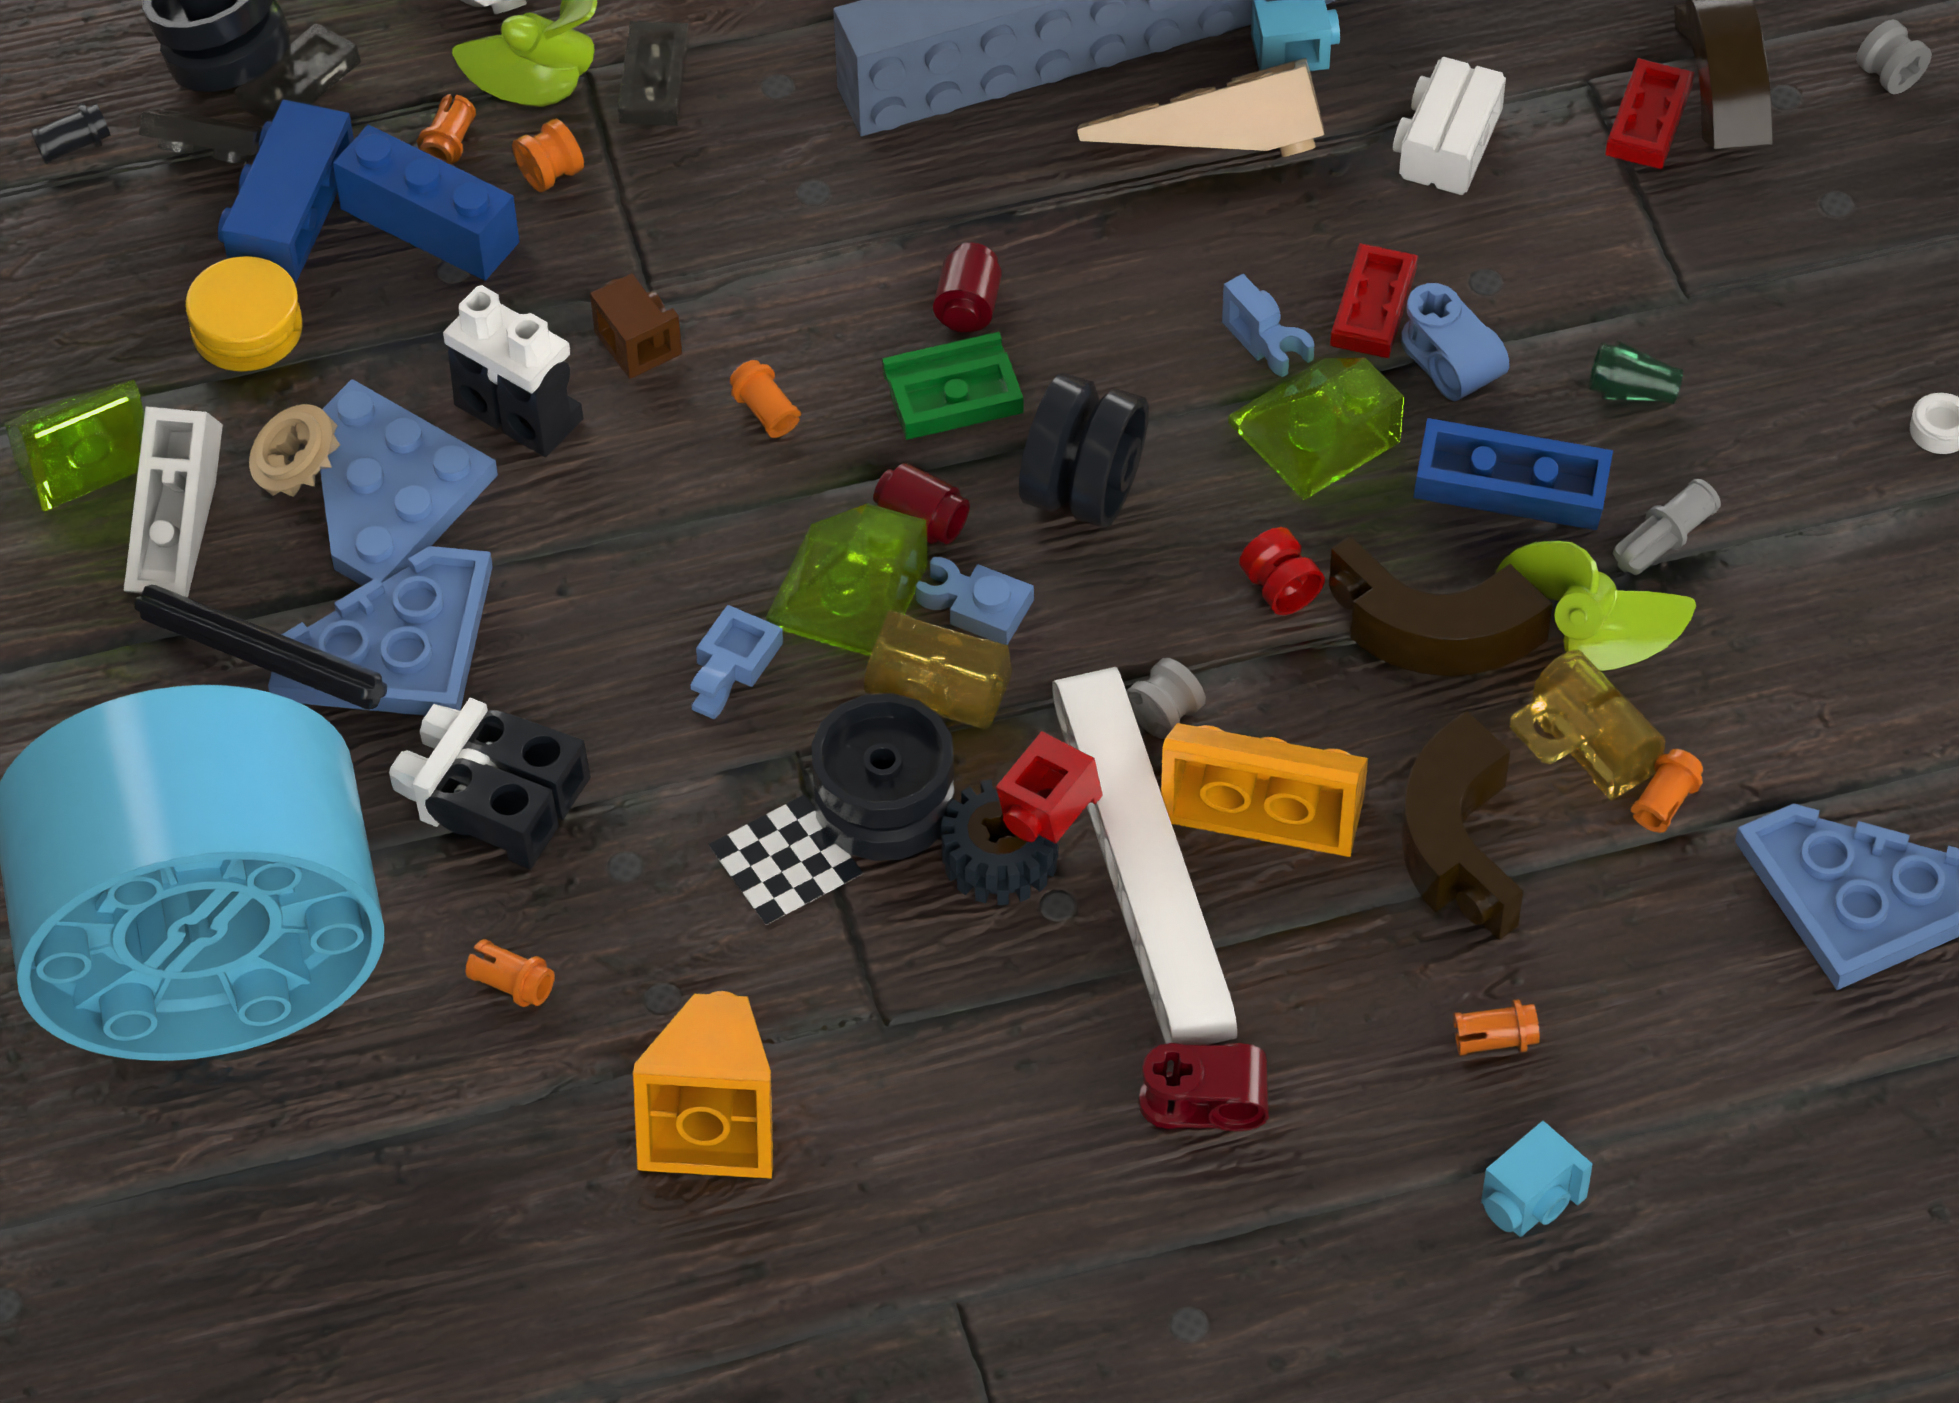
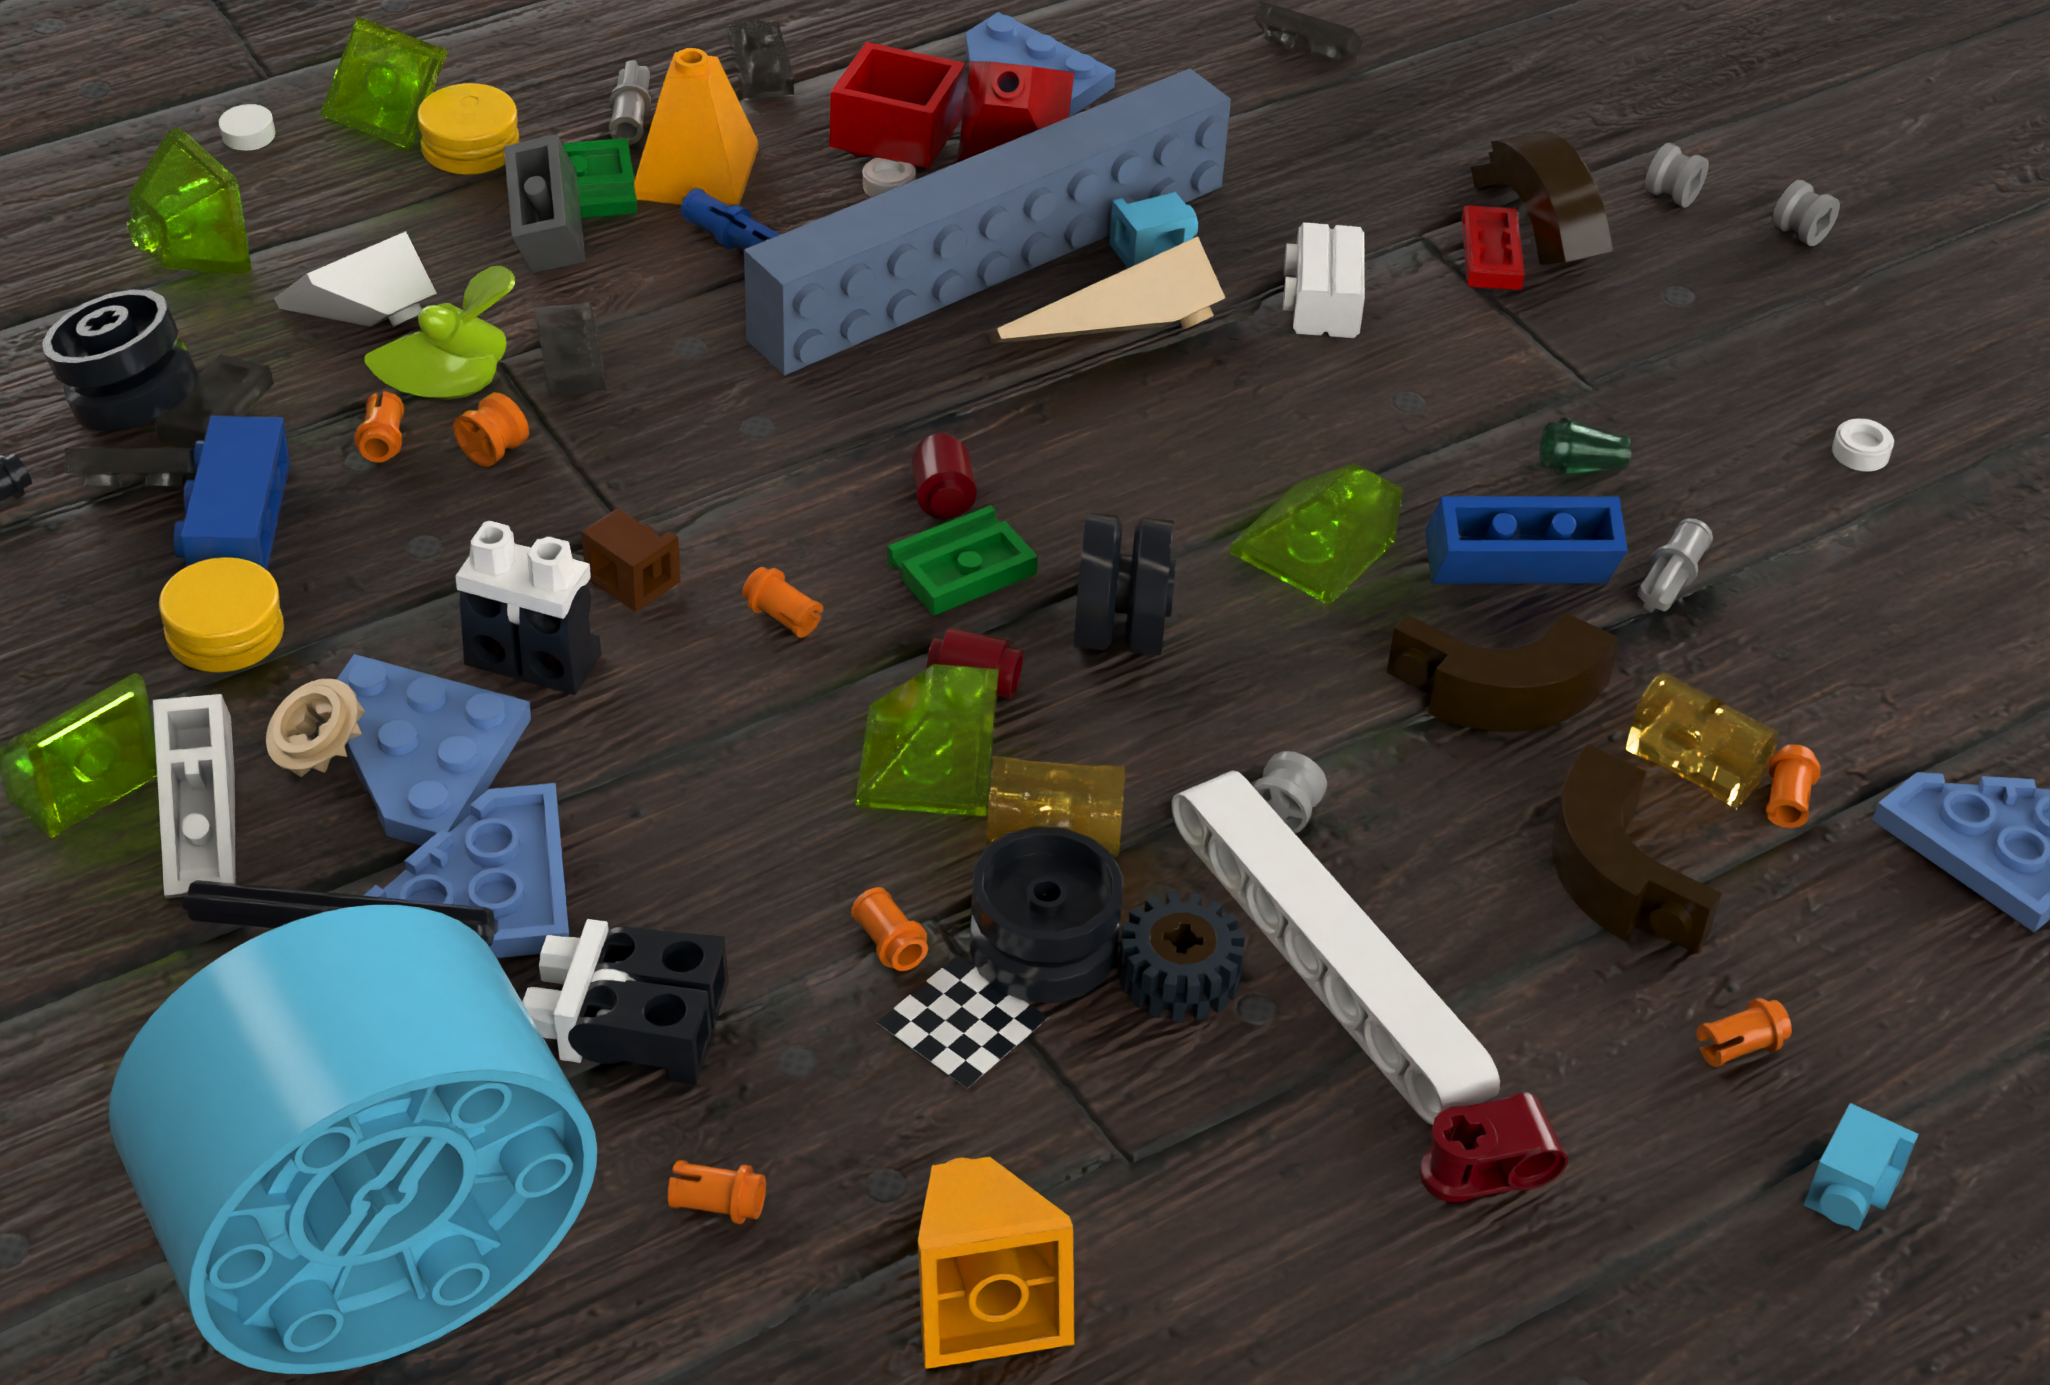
camera: 20 degrees left, 10 degrees down
(426, 202) = (382, 485): blue brick -> none
(732, 650) = (839, 830): medium blue plate -> none
(749, 771) = (898, 941): none -> orange pin
(982, 604) = (1063, 739): medium blue plate -> none
(1048, 789) = (1224, 900): red brick -> none
(1255, 322) = (1226, 462): medium blue plate -> none
(1263, 788) = (1429, 853): light orange slope -> none
(1286, 576) = (1346, 661): red wheel -> none
(1374, 300) = (1322, 426): red plate -> none
(1451, 342) = (1412, 452): medium blue piece -> none
(1594, 616) = (1634, 612): lime piece -> none

